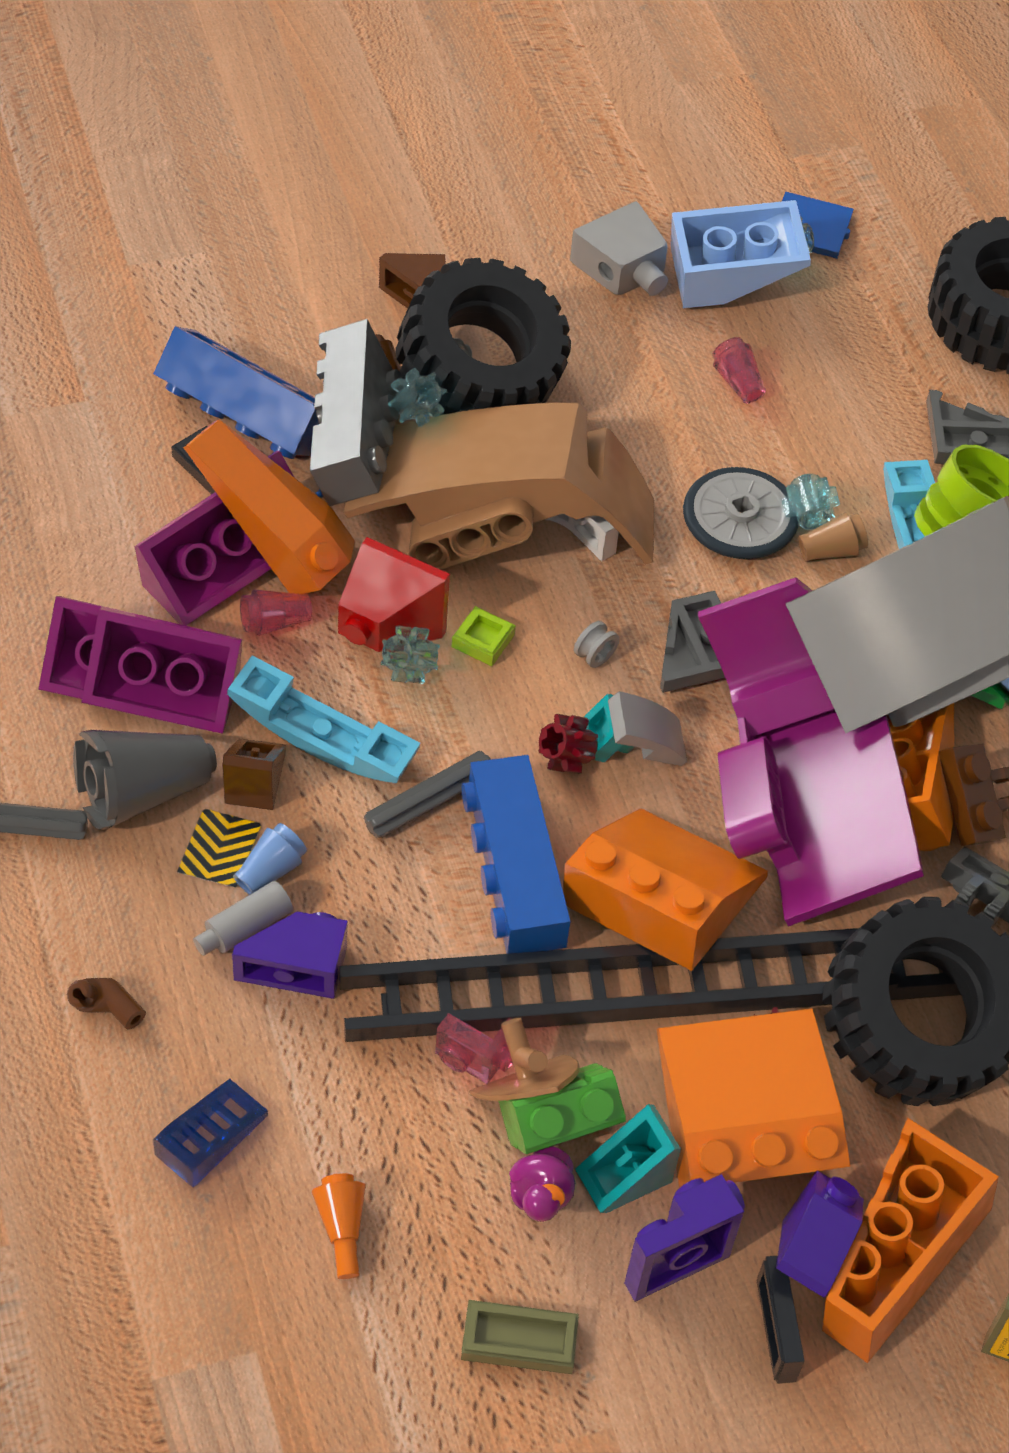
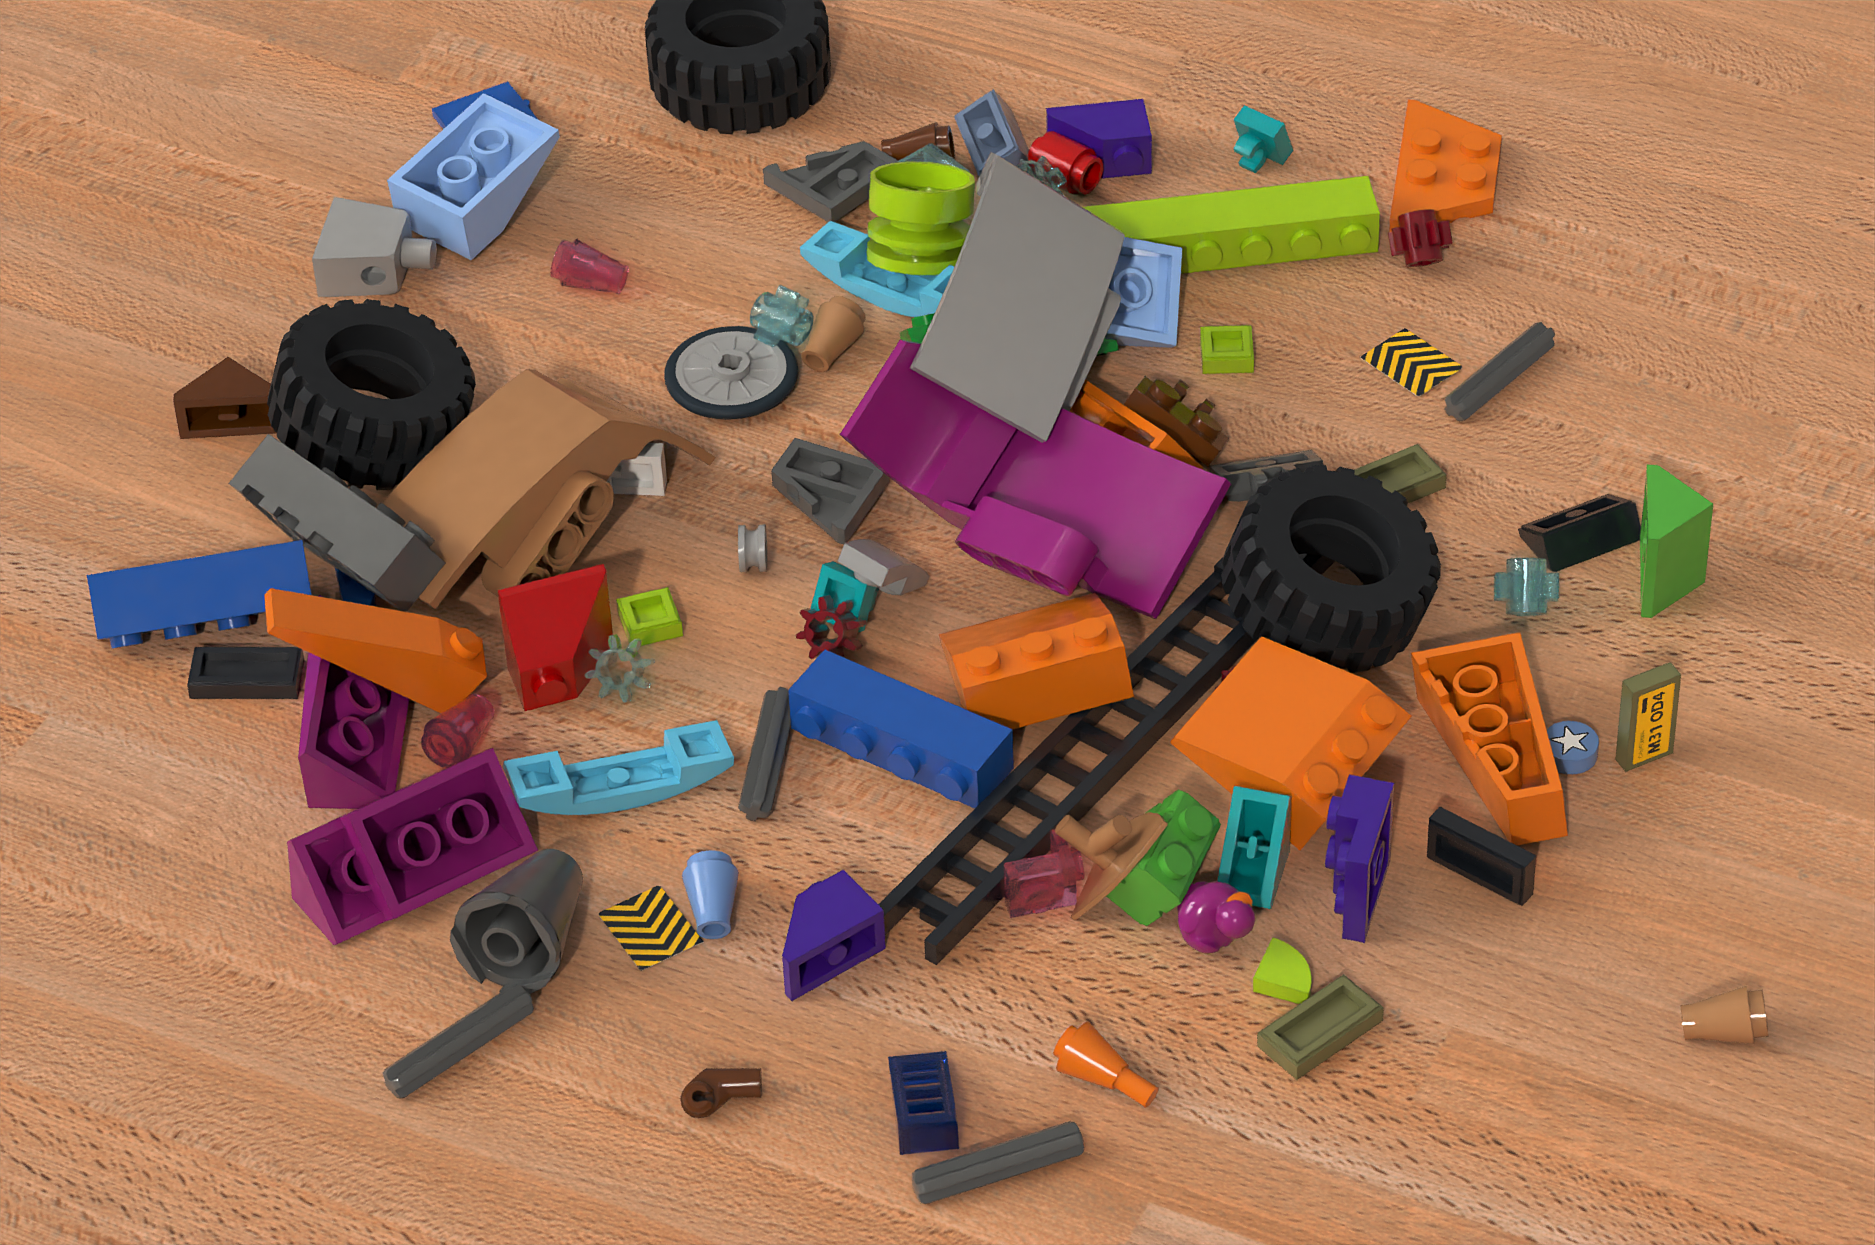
camera: 40 degrees left, 10 degrees down
(195, 1224) = (997, 1162): none -> dark grey axle
(244, 919) = (749, 947): light grey cylinder -> none
(252, 773) = (613, 849): reddish brown slope -> none
(427, 402) = (383, 467): clear light blue gear -> none
(545, 1271) = (1283, 973): none -> lime tile
(819, 1232) = (1443, 769): dark purple slope -> none
(958, 1294) = (1573, 746): none -> medium blue tile

